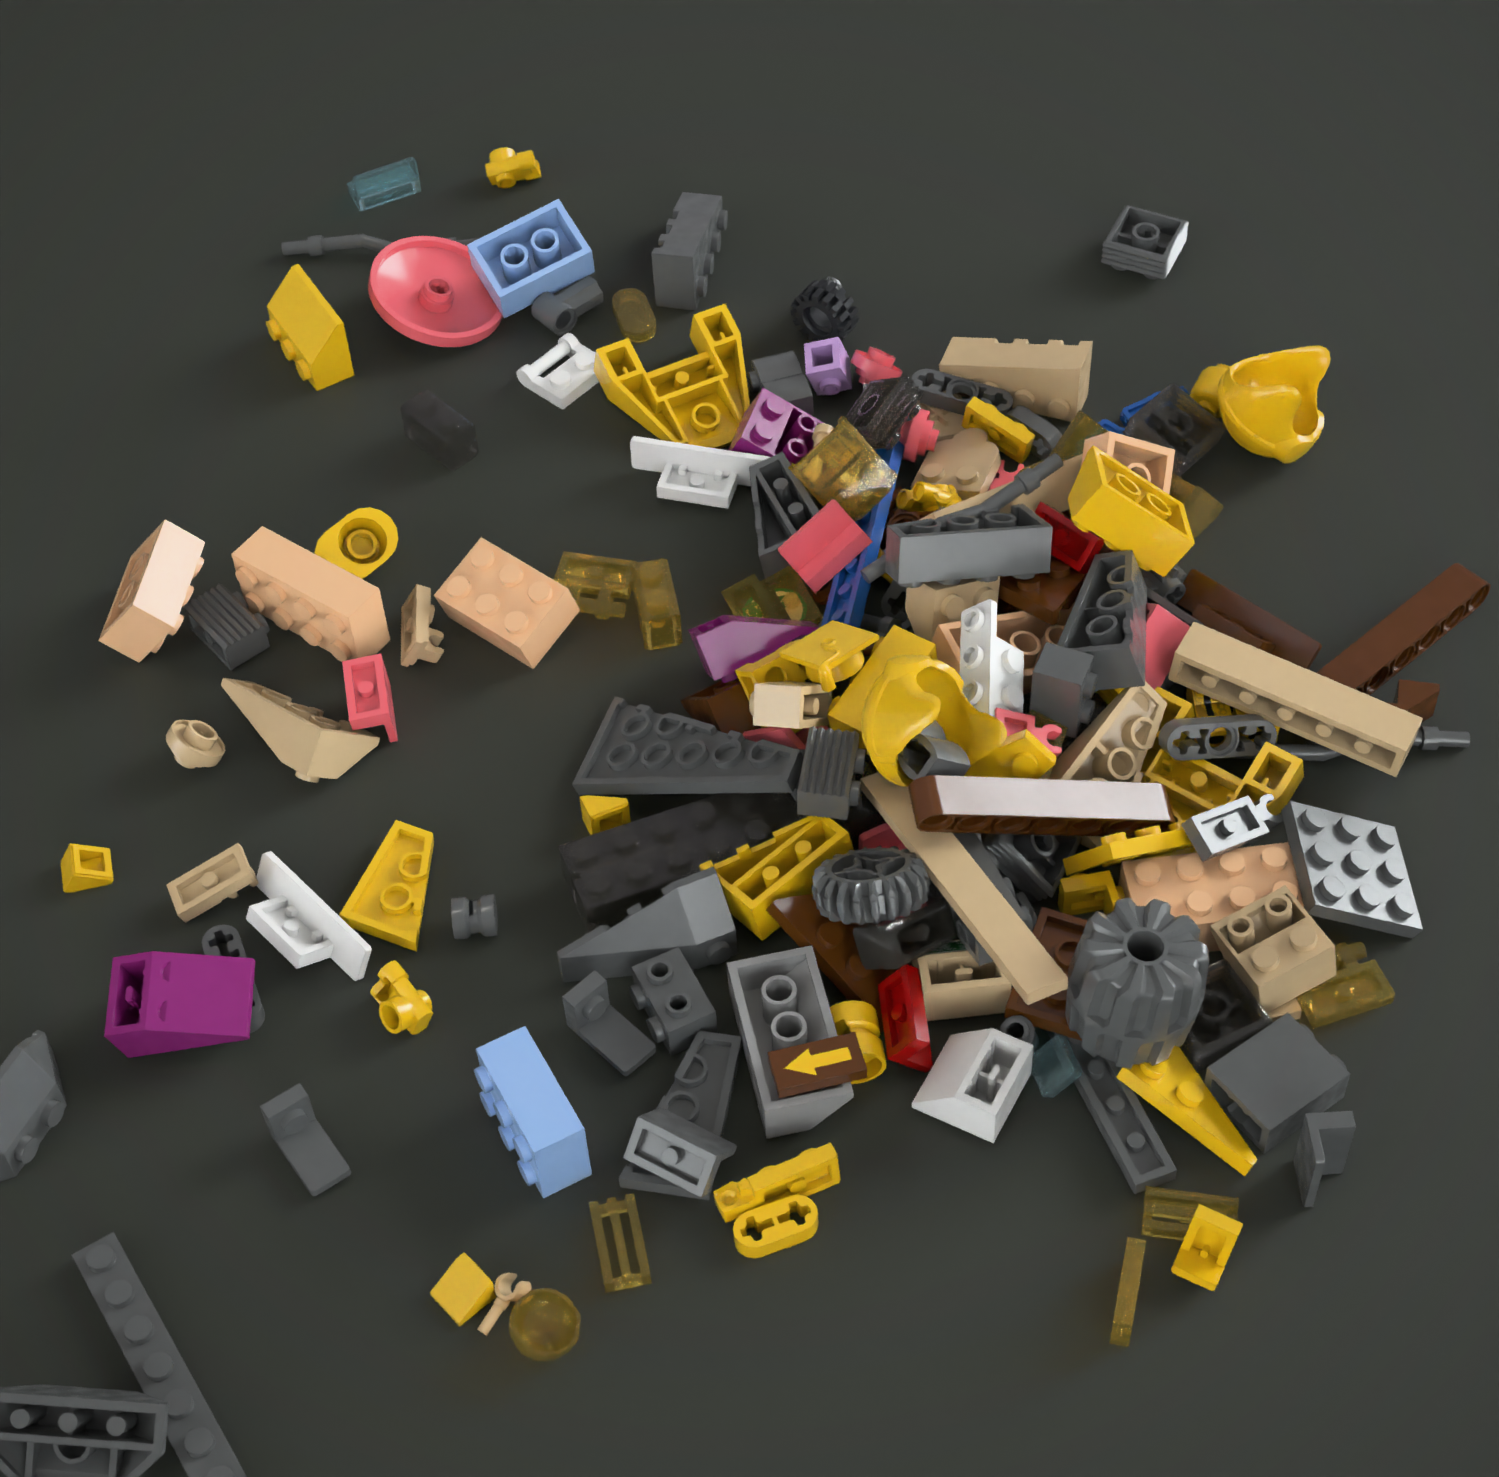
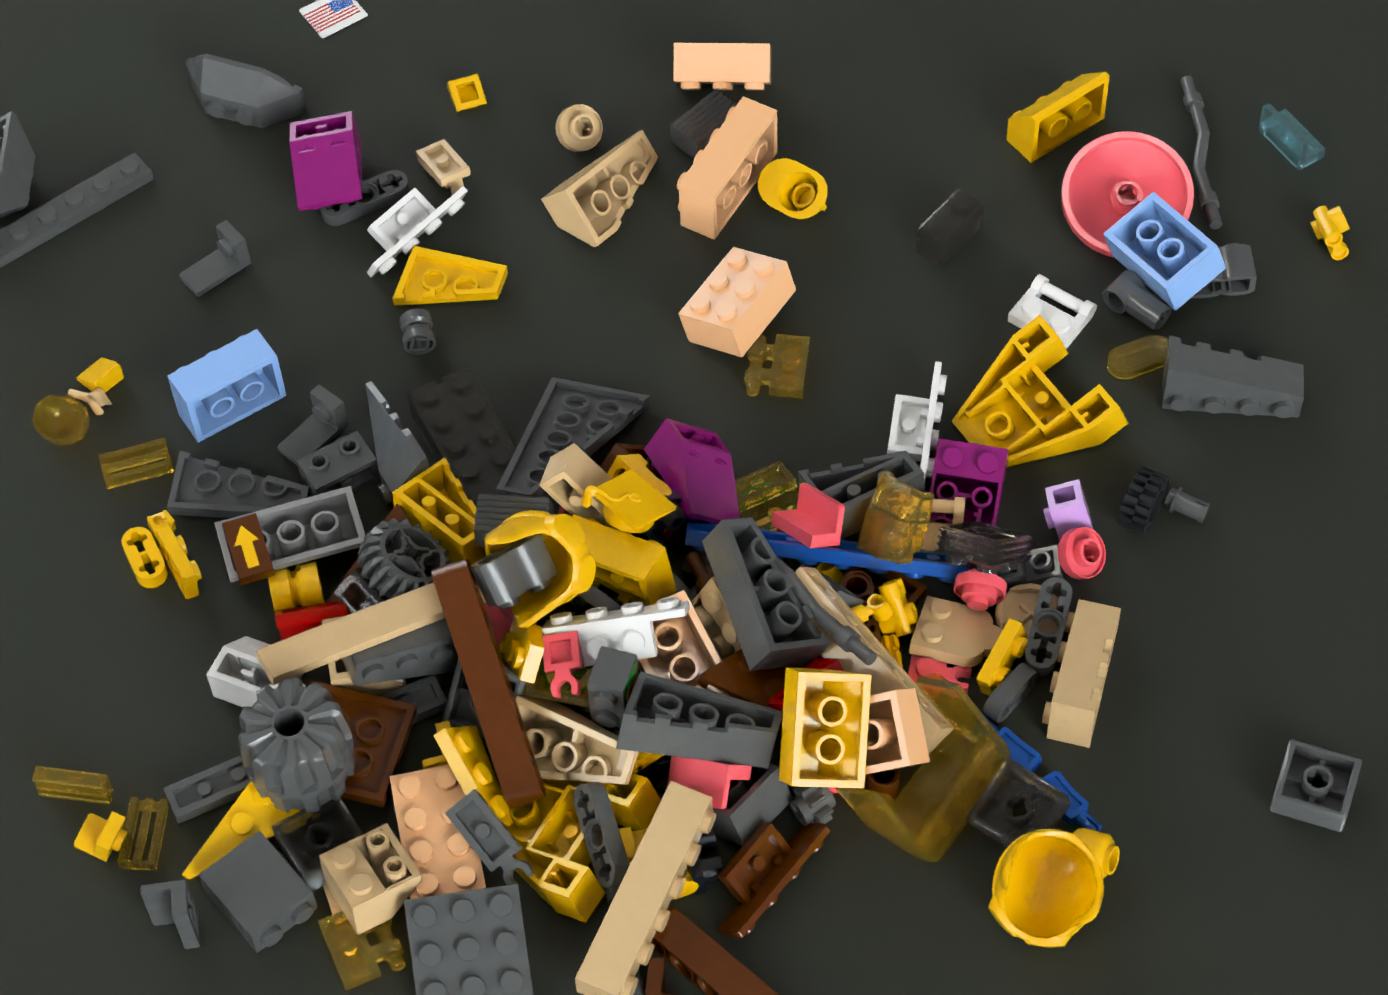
camera: 85 degrees right, 5 degrees up
(369, 694) = (630, 230): coral panel -> none
(400, 1003) = (334, 302): yellow plate -> none
(417, 638) = (710, 248): tan plate -> none
(603, 812) = (518, 401): yellow slope -> none
(656, 604) = (752, 410): clear yellow brick -> none
(677, 1150) = (196, 480): panel -> none
(784, 378) = (1029, 477): dark grey brick -> none

